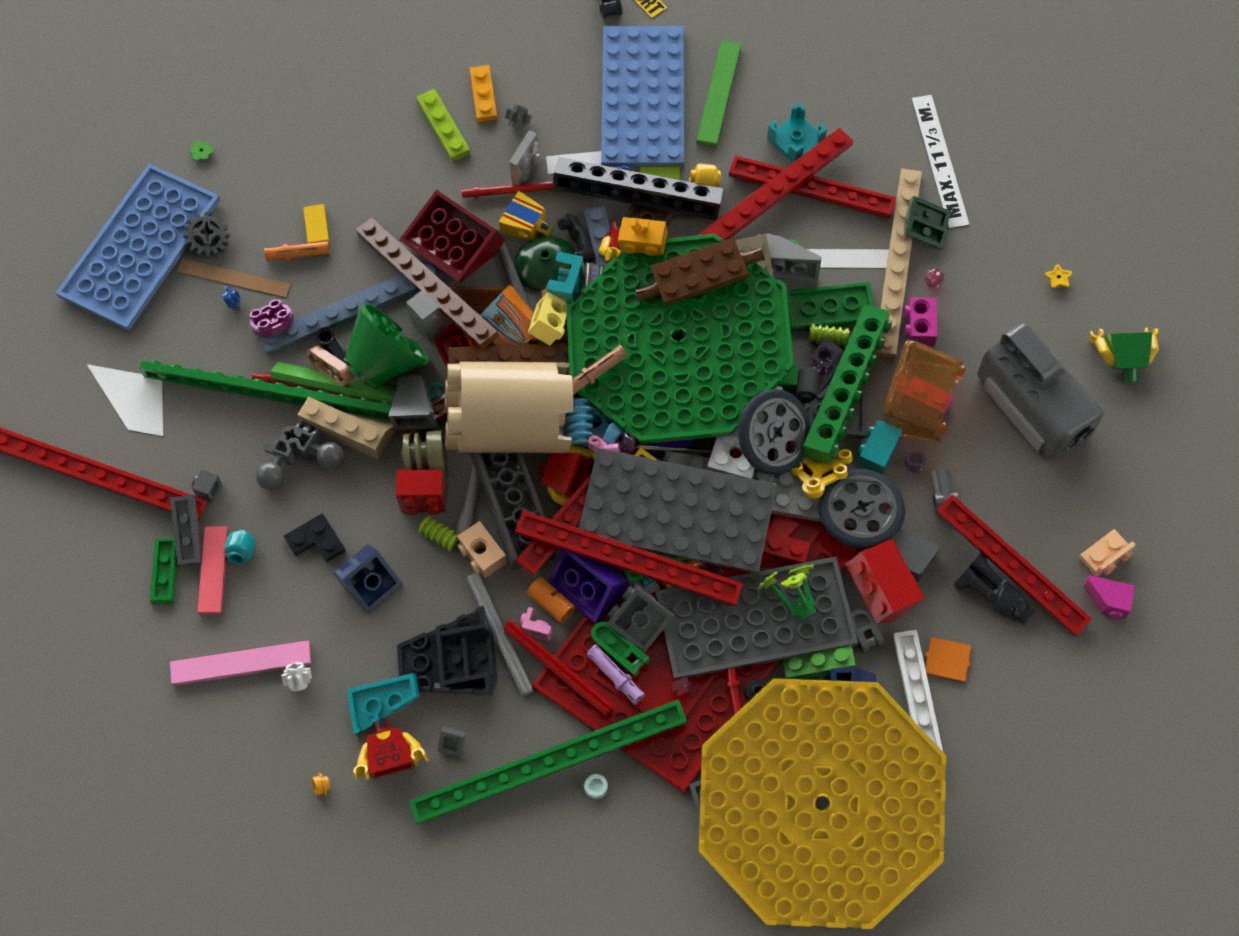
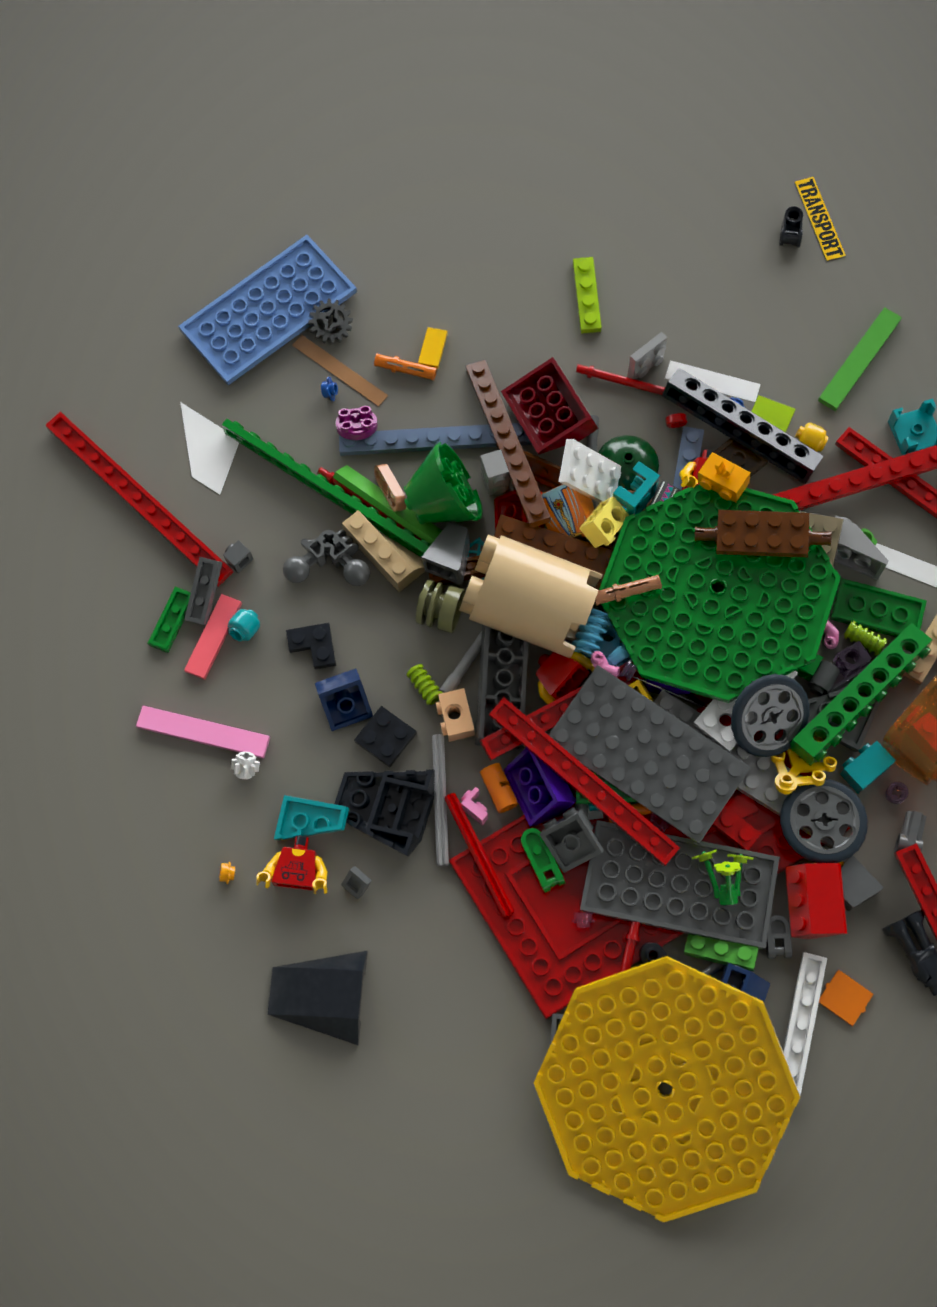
camera: 25 degrees right, 5 degrees up
(201, 150) = (358, 239): bright green plant -> none
(333, 346) = (401, 470): black piece -> none
(421, 491) = (423, 639): red brick -> none
(422, 597) = (385, 736): none -> black plate
(461, 860) = (321, 994): none -> black wedge
(483, 93) = (636, 278): light orange plate -> none
(515, 278) = (588, 472): none -> white plate
(518, 116) = (659, 312): dark grey gear -> none
(524, 218) = (624, 414): yellow torso -> none
(547, 762) = (435, 938): green plate -> none
(575, 206) = (676, 420): none -> red tile
(578, 235) = (667, 469): black piece -> none
(596, 786) = (468, 978): light aqua tile -> none
(620, 679) = (528, 883): lavender pin -> none
(643, 96) = (785, 335): medium blue plate -> none
(798, 346) = (831, 636): none -> bright pink arm

